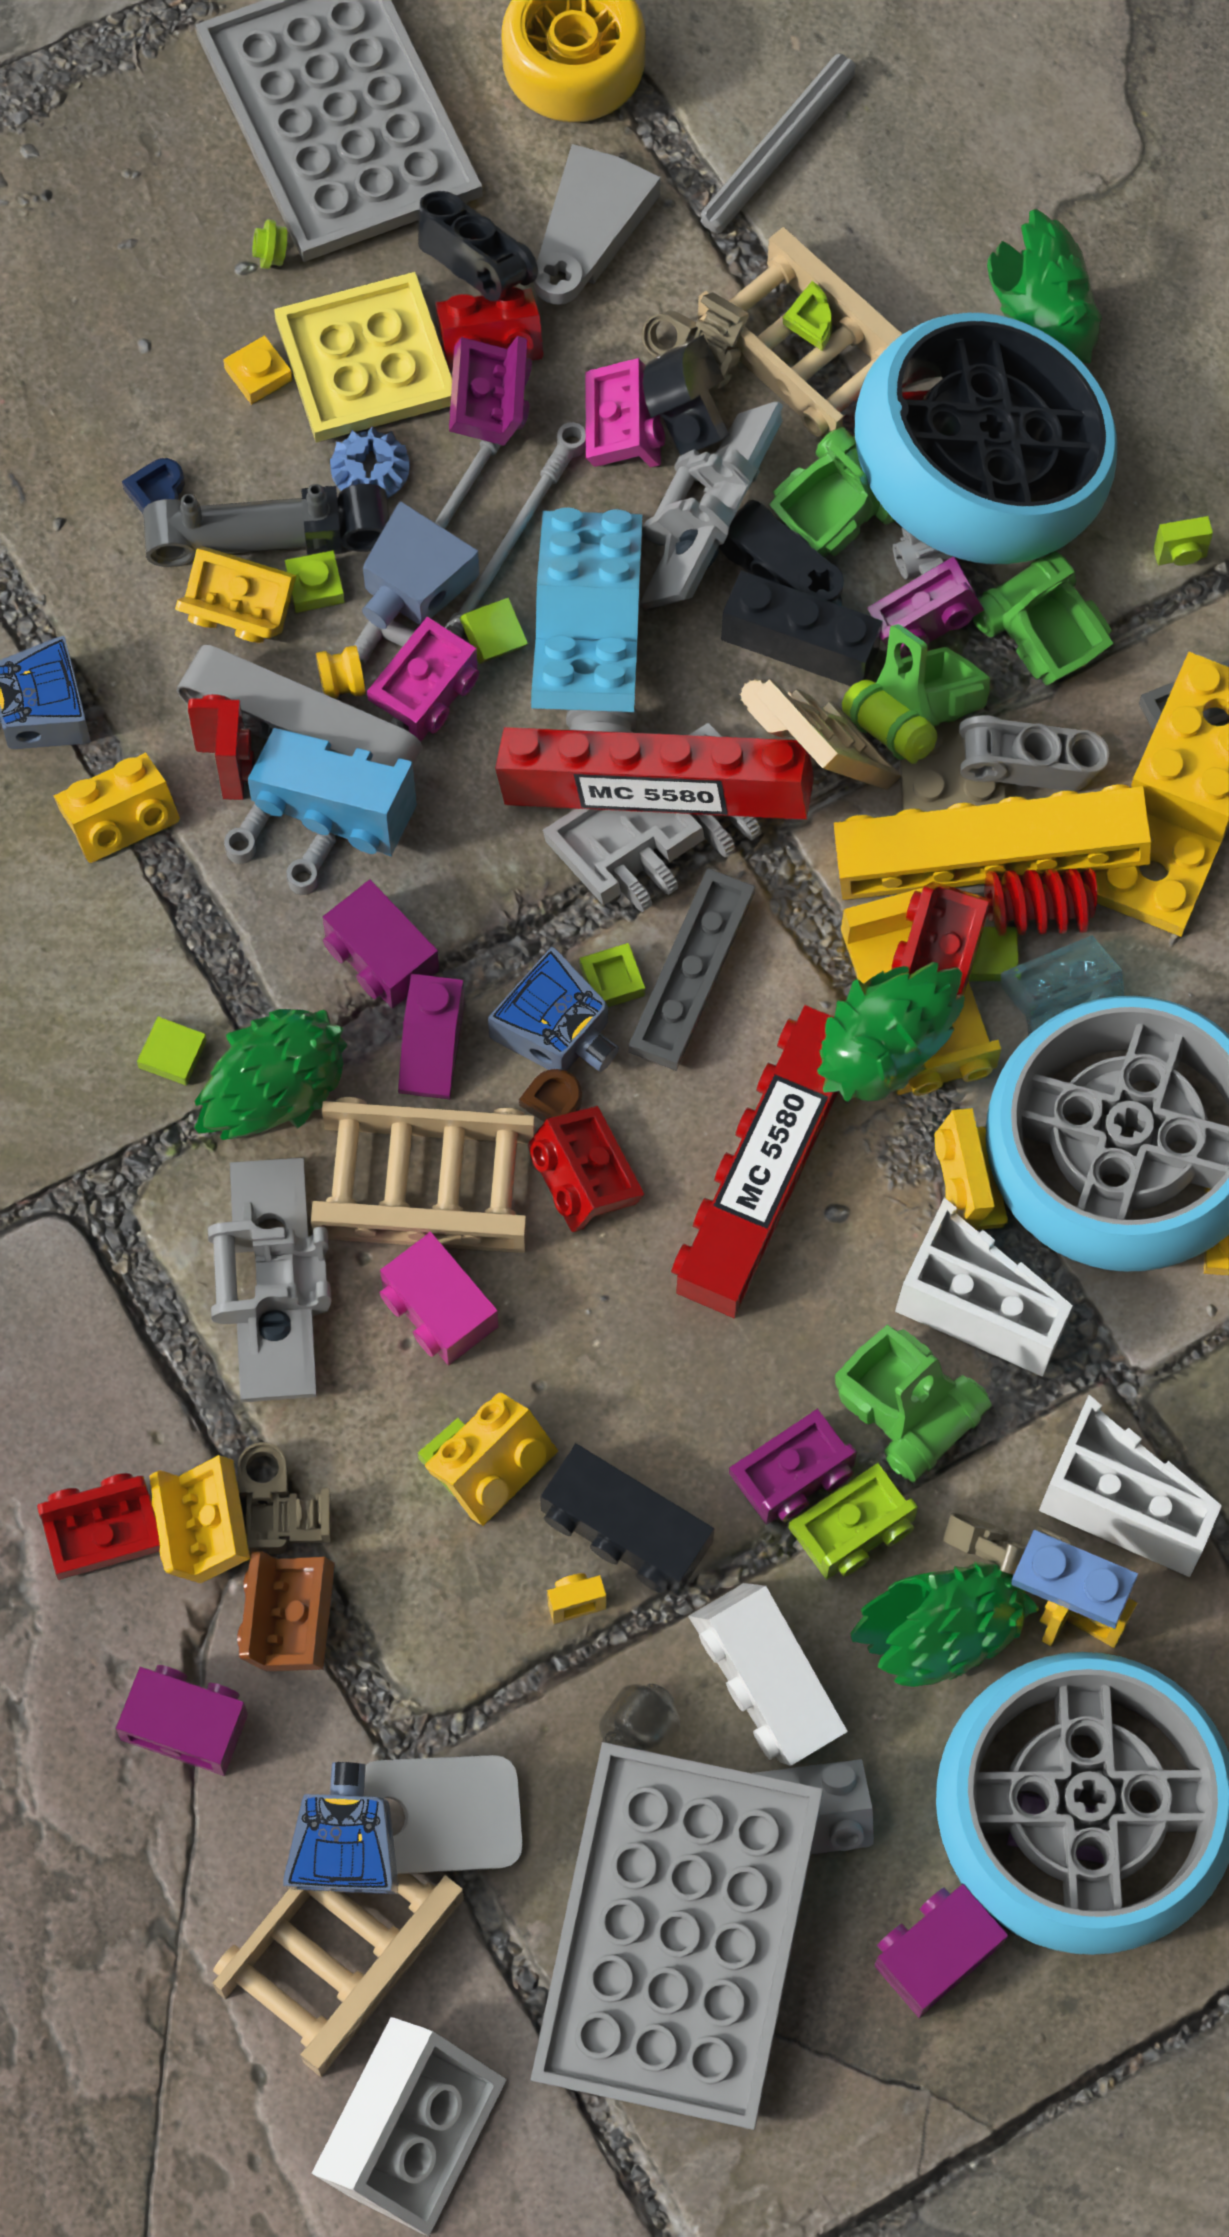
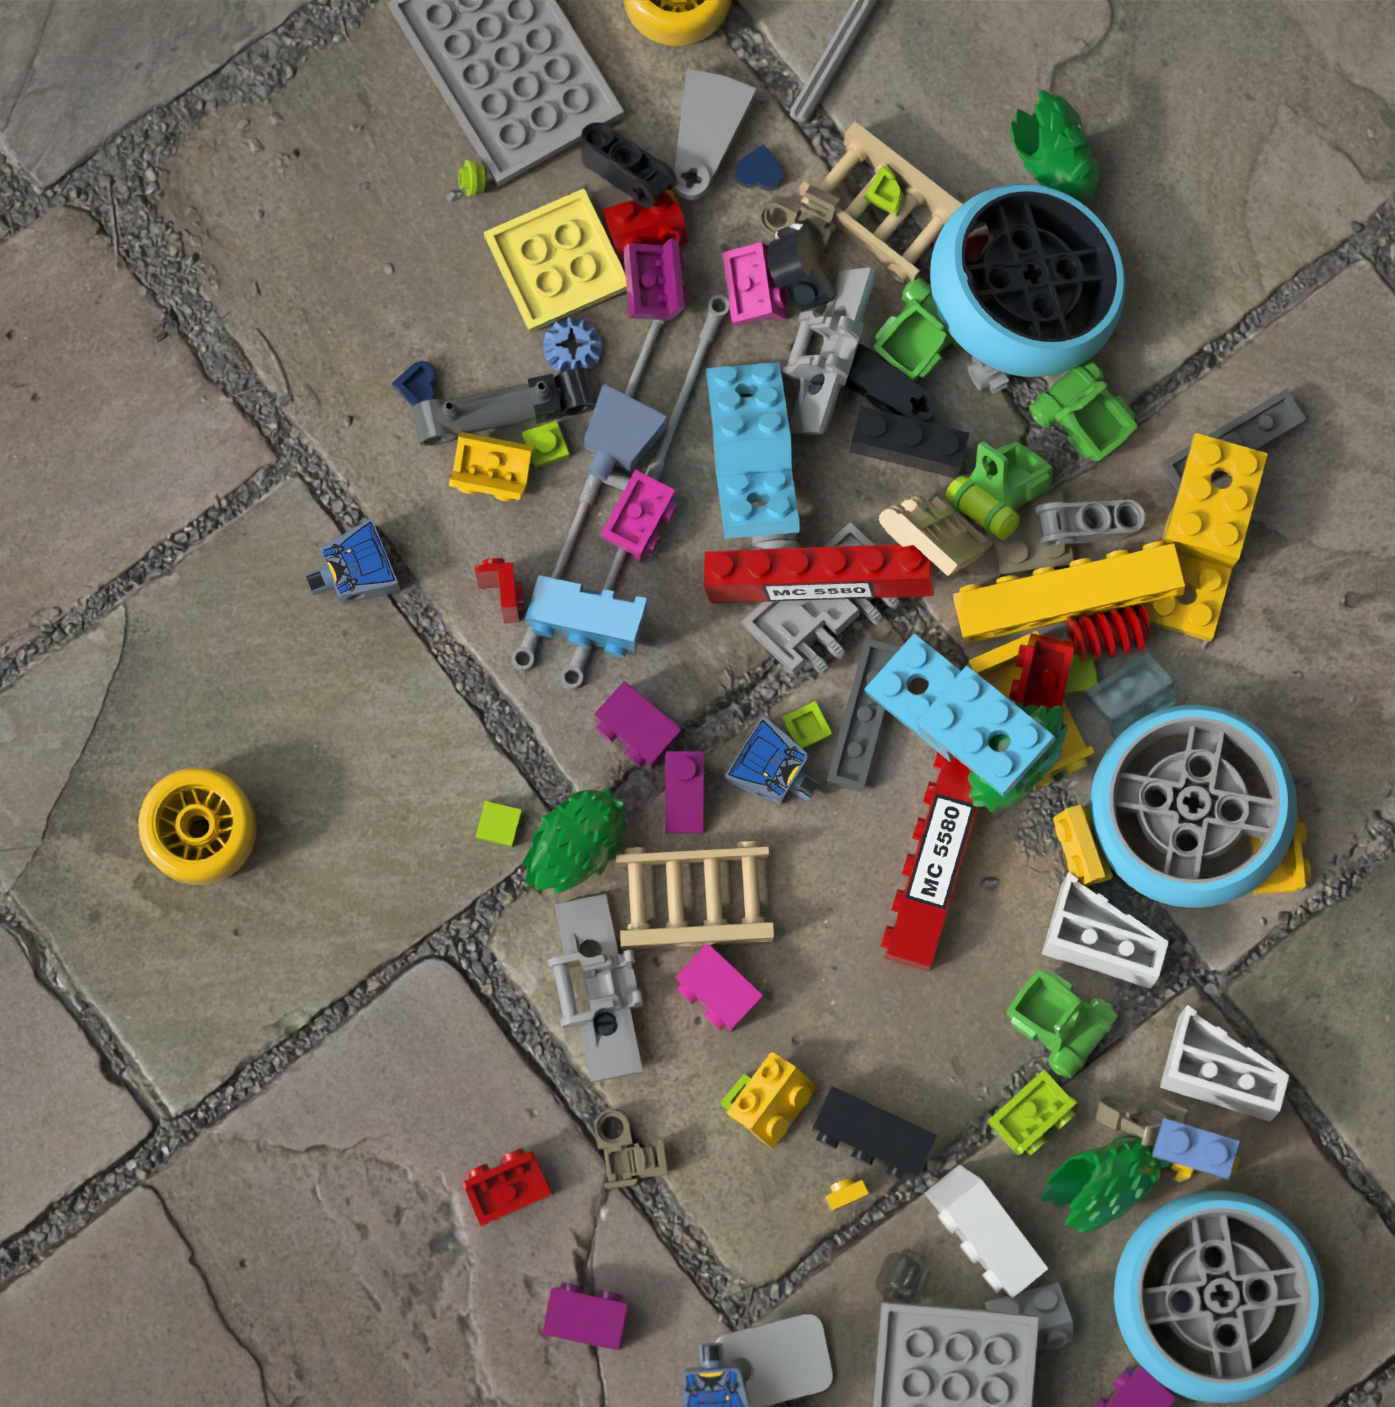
camera: 10 degrees left, 10 degrees up
(118, 807) = (429, 641): yellow bracket -> none
(199, 1520) = (575, 1174): yellow bracket -> none
(257, 369) = (477, 279): yellow plate -> none
(281, 703) = (550, 557): light grey beam -> none
(286, 1612) = (645, 1231): dark orange bracket -> none
(341, 673) = (578, 522): yellow wheel -> none
(493, 630) = (683, 469): lime tile -> none
(552, 1094) = (777, 824): reddish brown tile -> none
(583, 1166) = (807, 875): red bracket -> none
(650, 280) = (759, 170): none -> dark blue tile
(794, 1467) = (985, 1079): magenta bracket -> none
(820, 967) = (959, 715): none -> medium azure bracket
(929, 604) = (998, 414): magenta bracket -> none
(1183, 541) = (1179, 336): lime plate -> none

